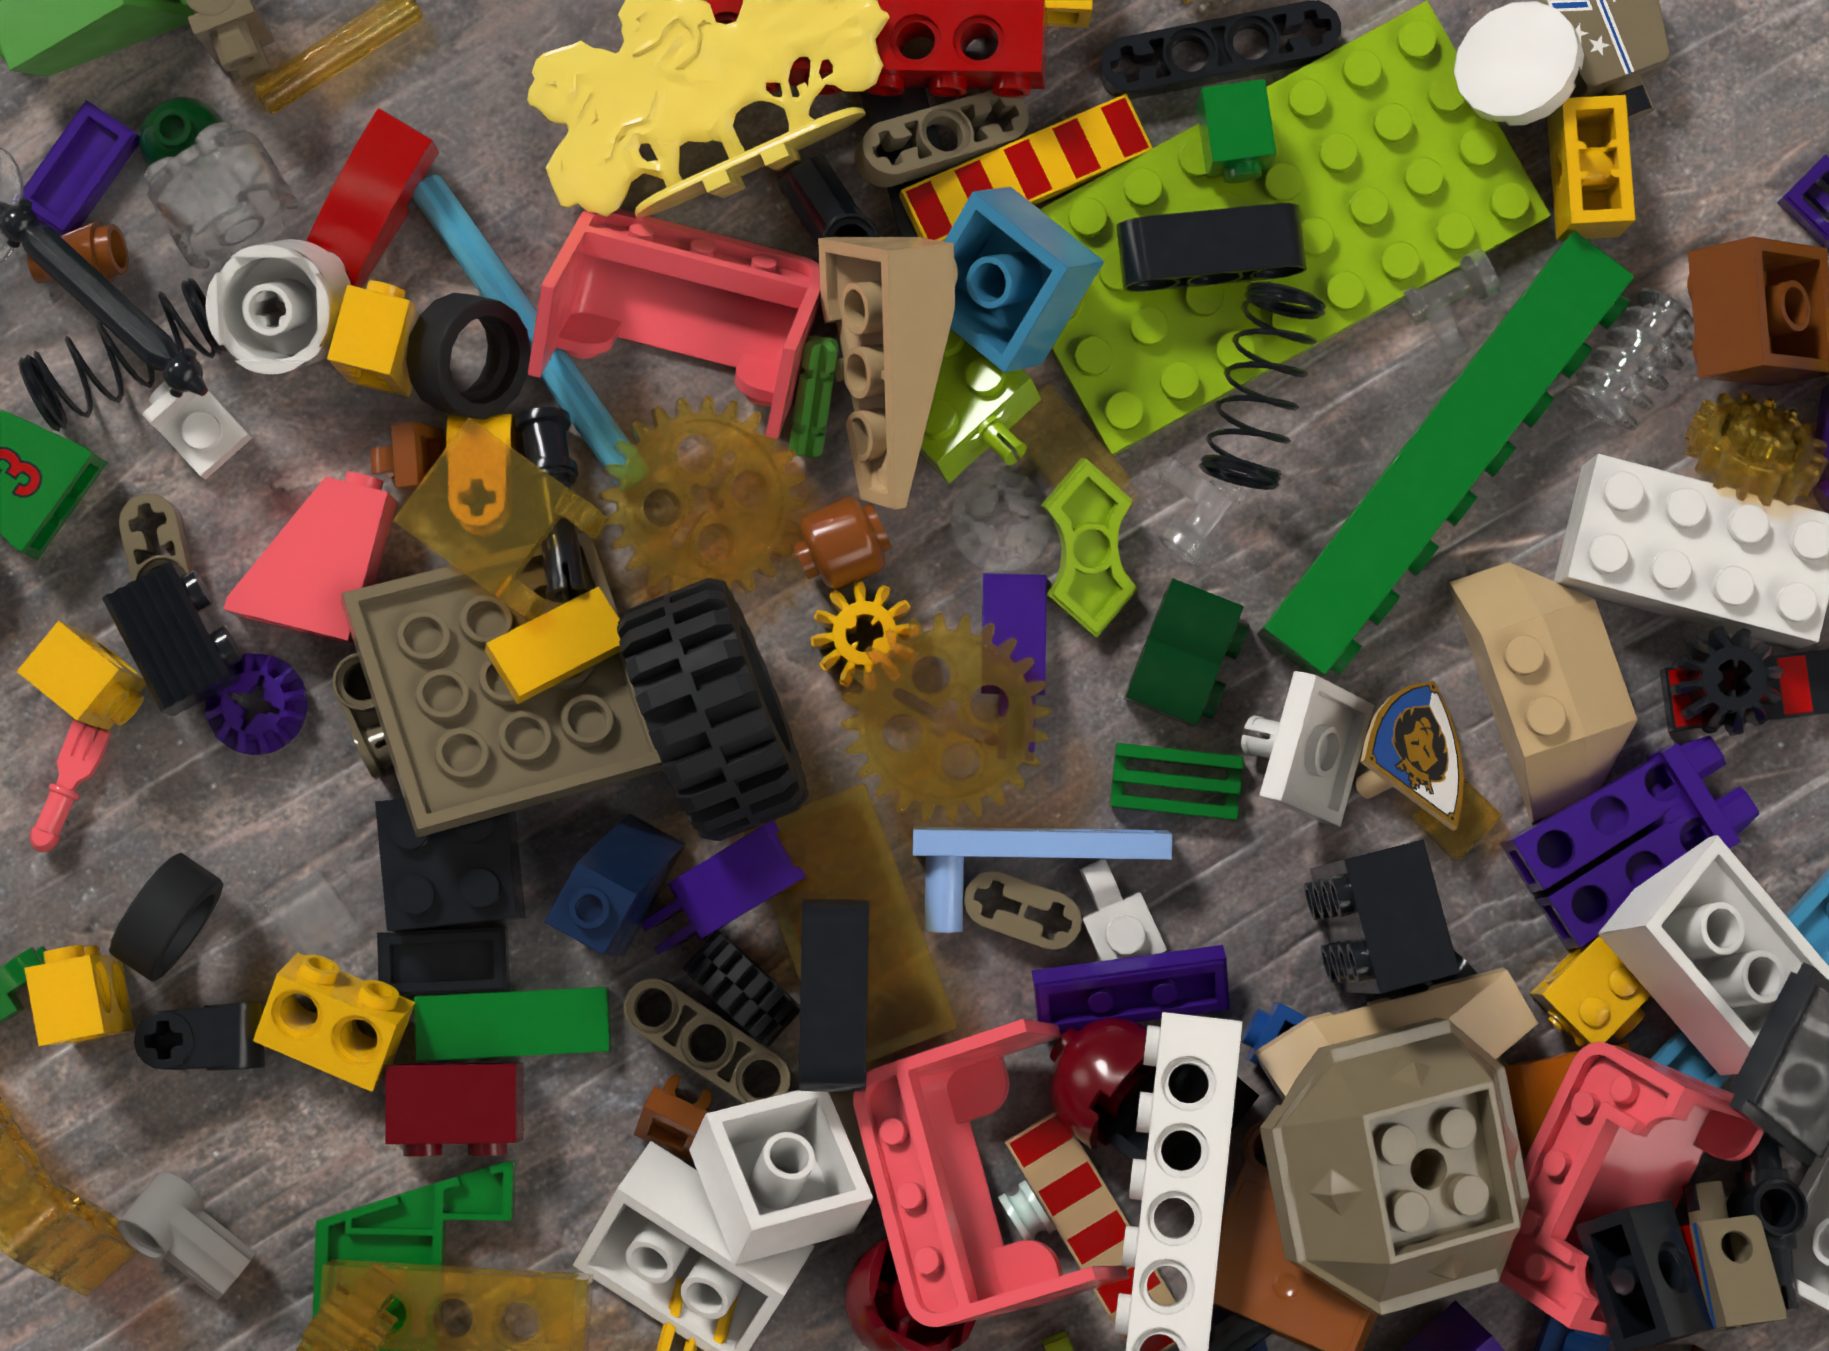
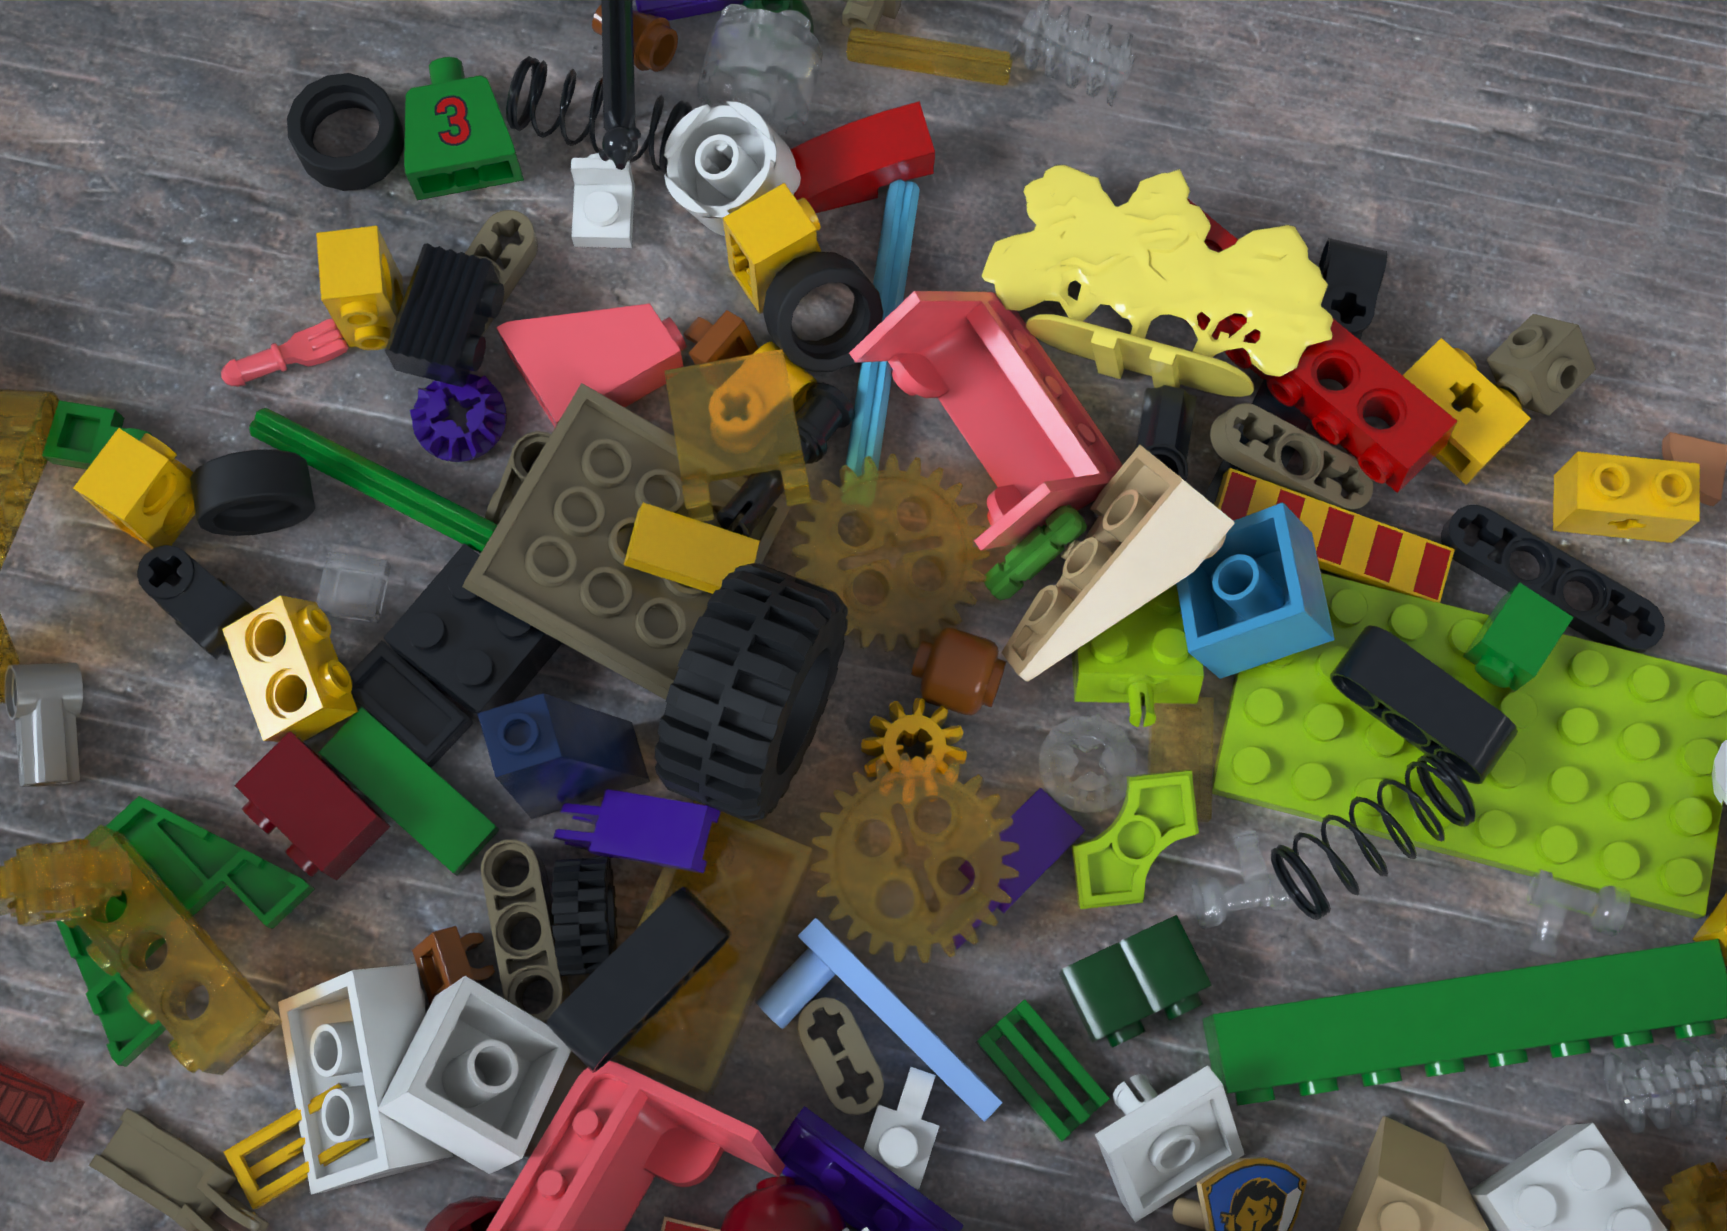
camera: 45 degrees right, 10 degrees down
(248, 817) = (373, 479): none -> green axle

